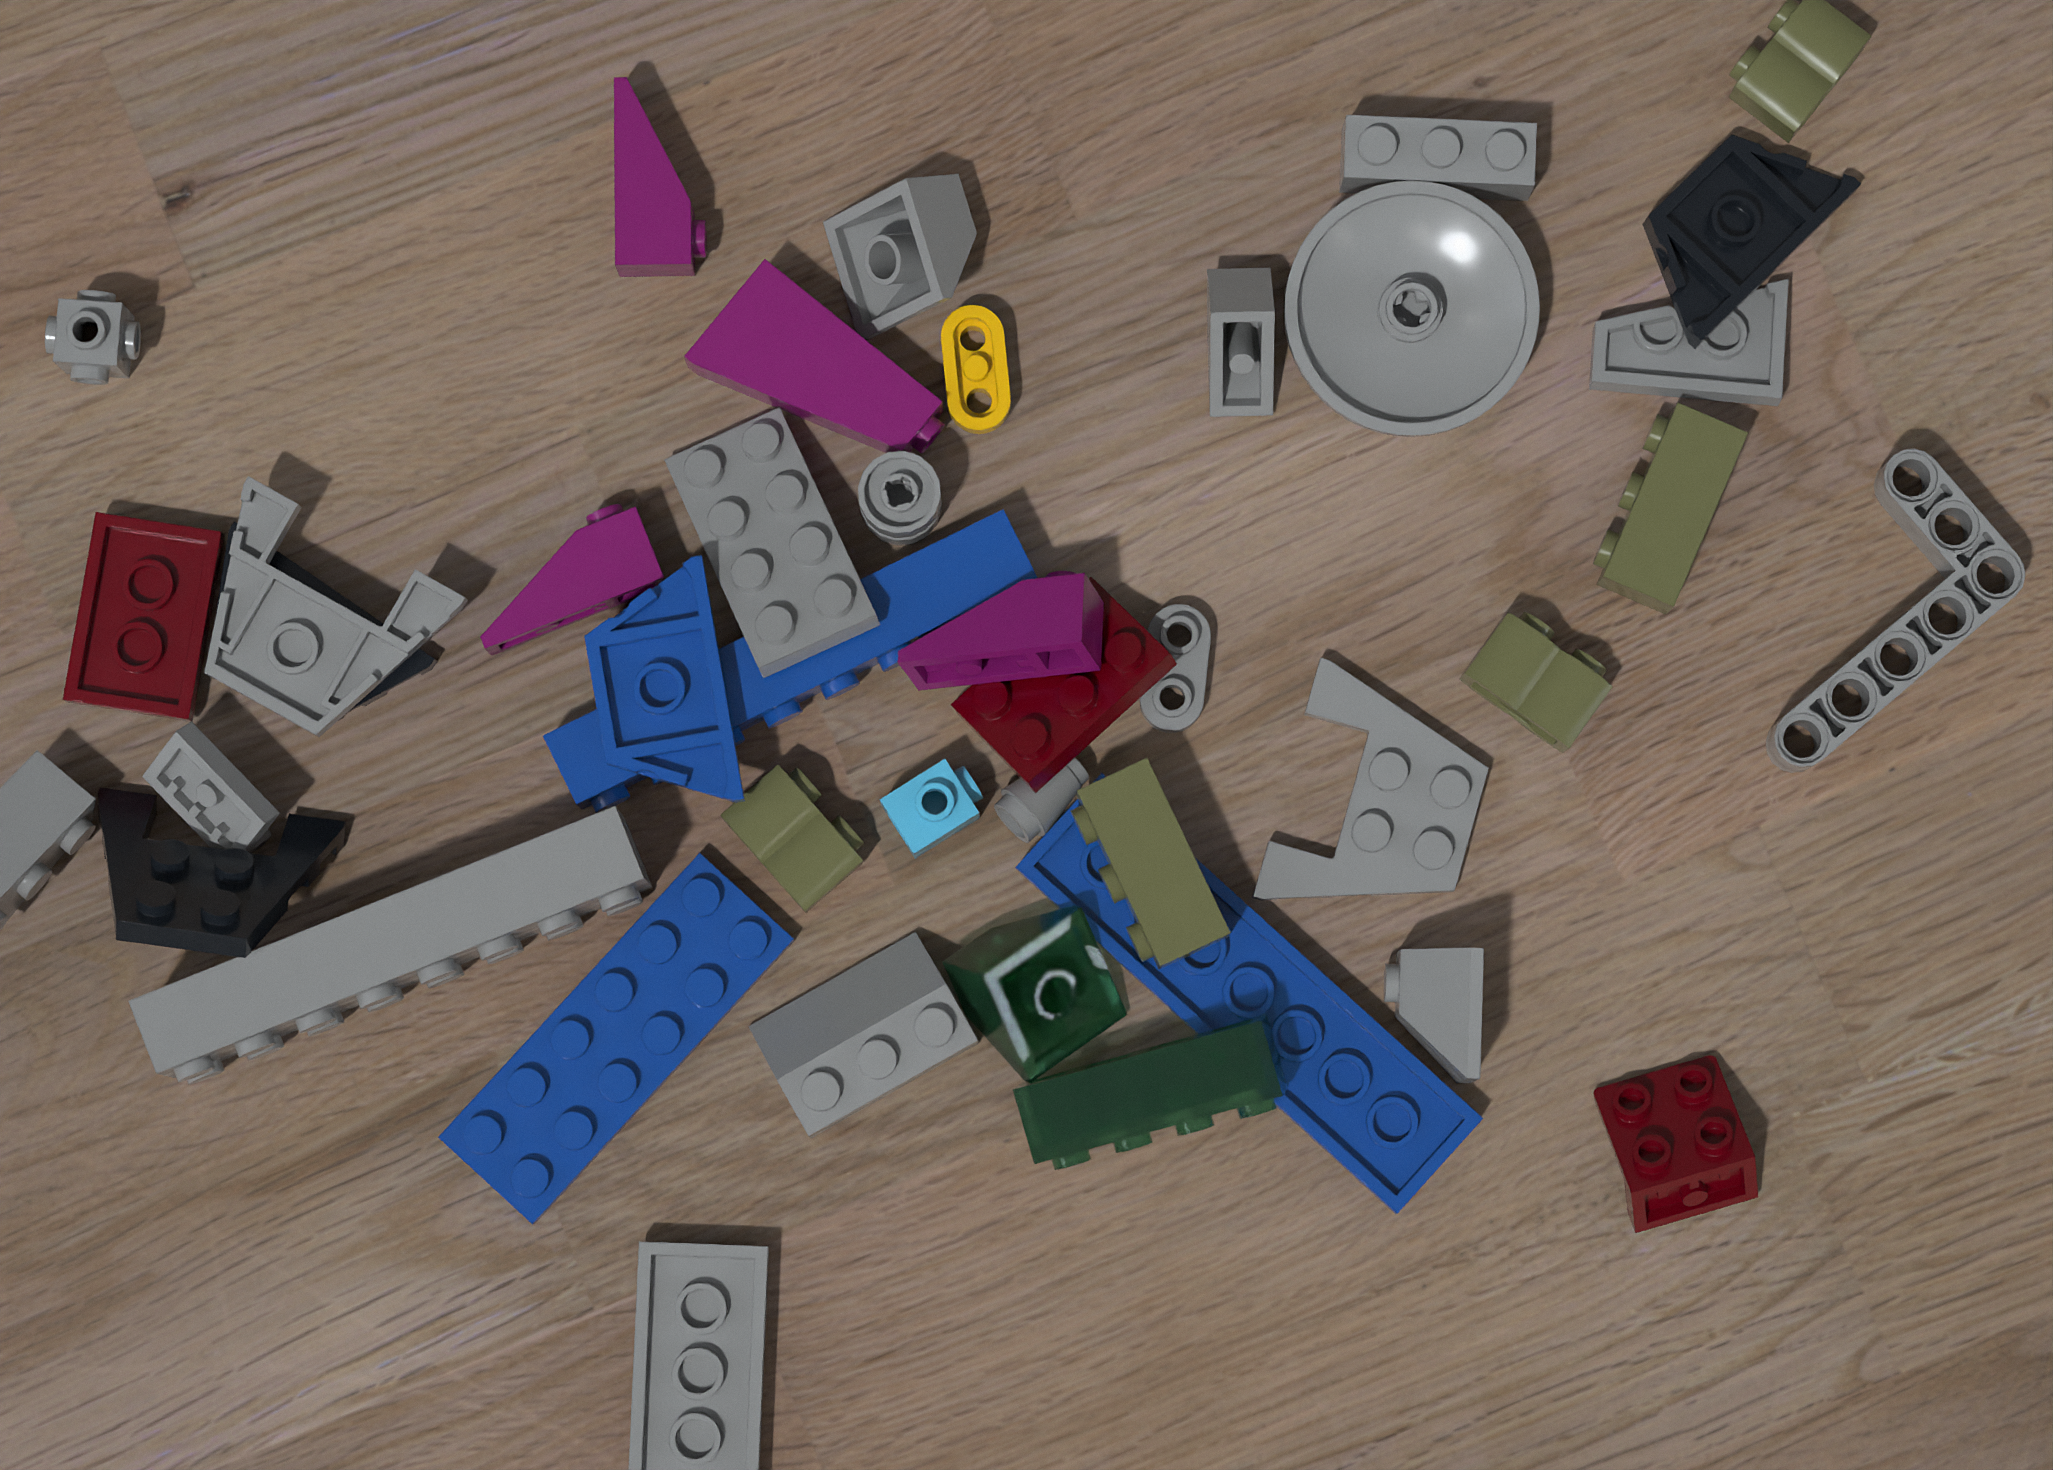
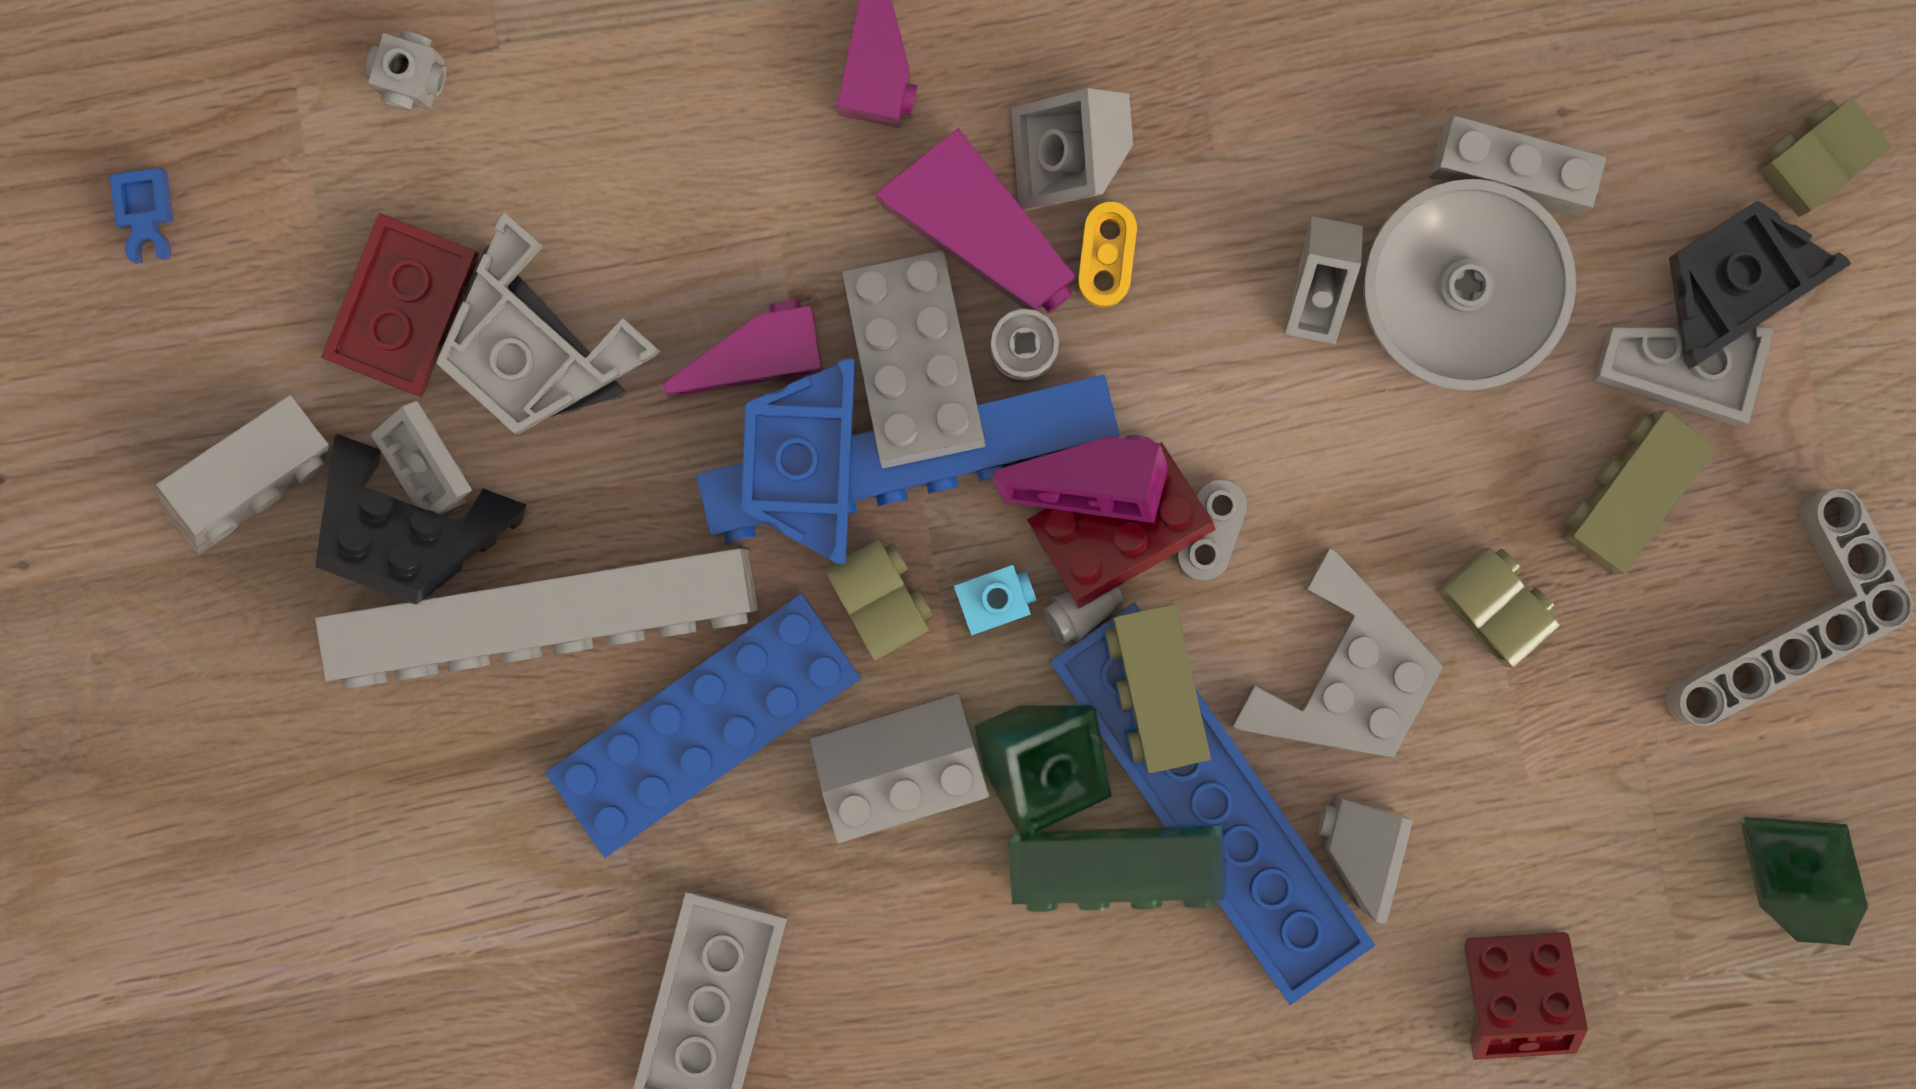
camera: 10 degrees right, 5 degrees up
(1978, 922) = (1806, 878): none -> clear green slope

